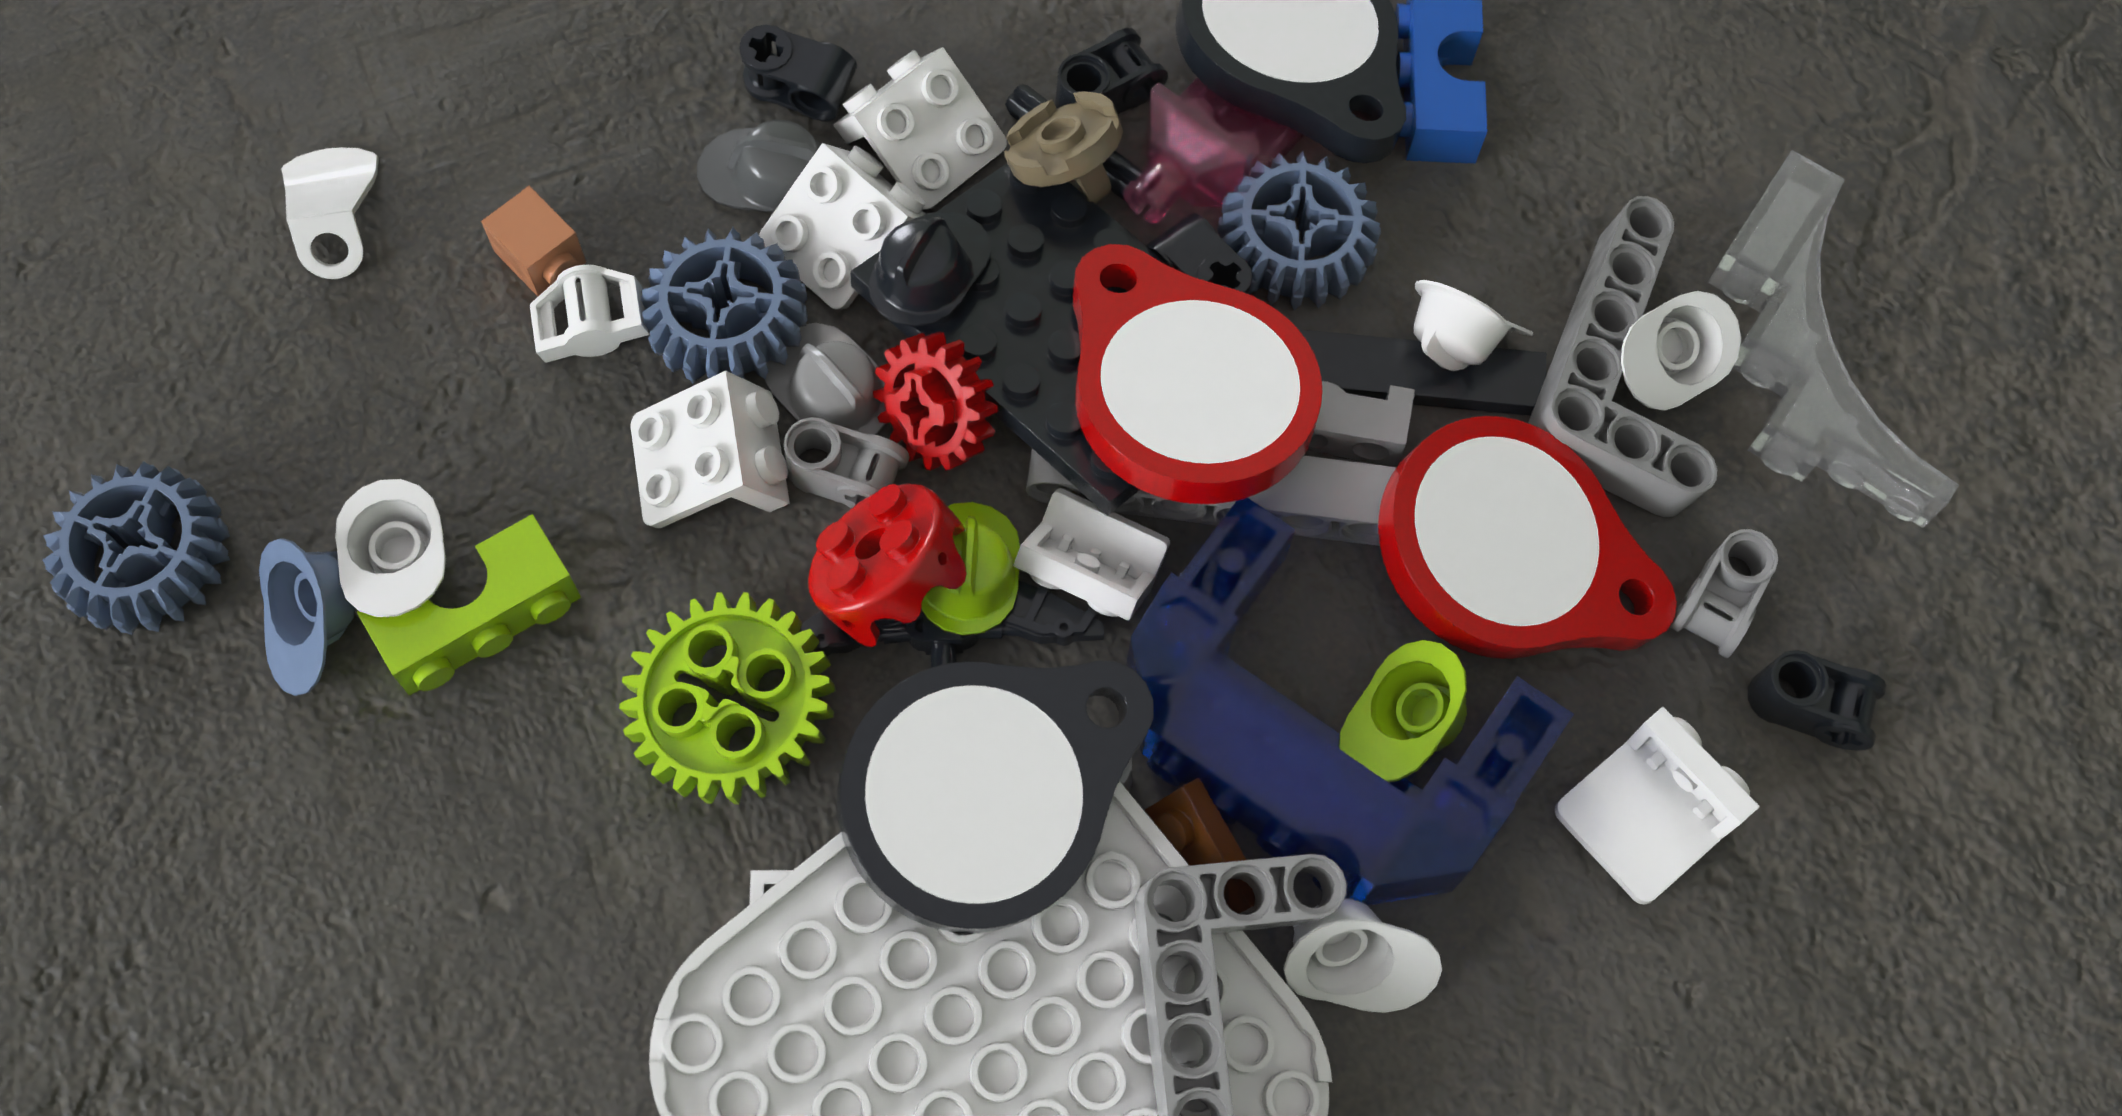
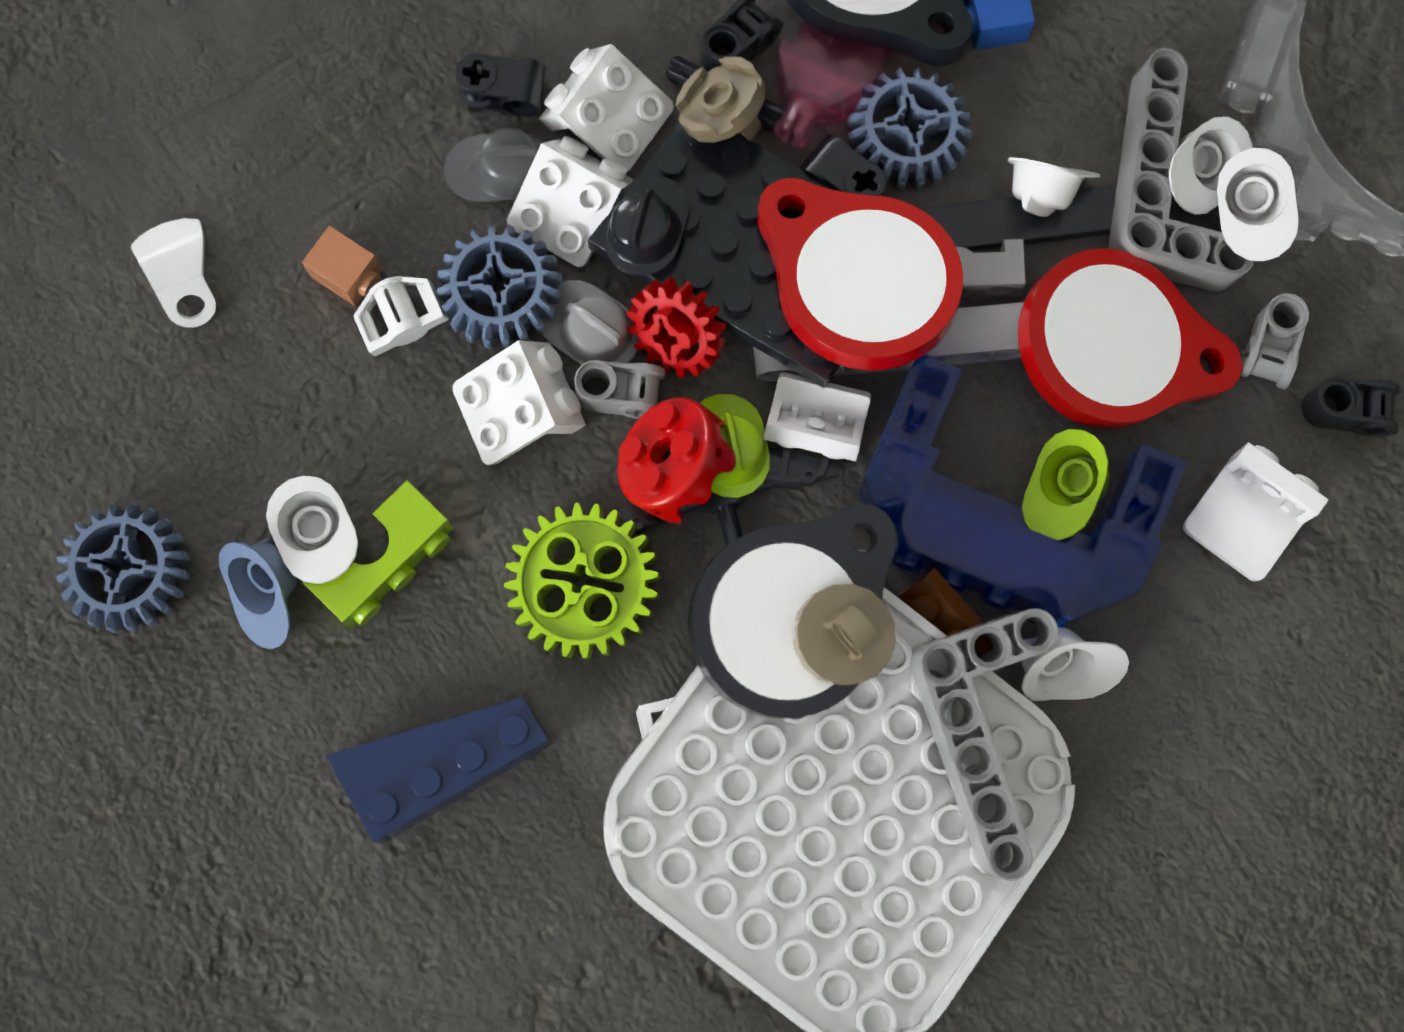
camera: 10 degrees left, 10 degrees up
(451, 896) = (432, 766): none -> dark blue wedge
(1048, 828) = (844, 634): none -> dark tan tile
(1733, 408) = (1257, 204): none -> white piece

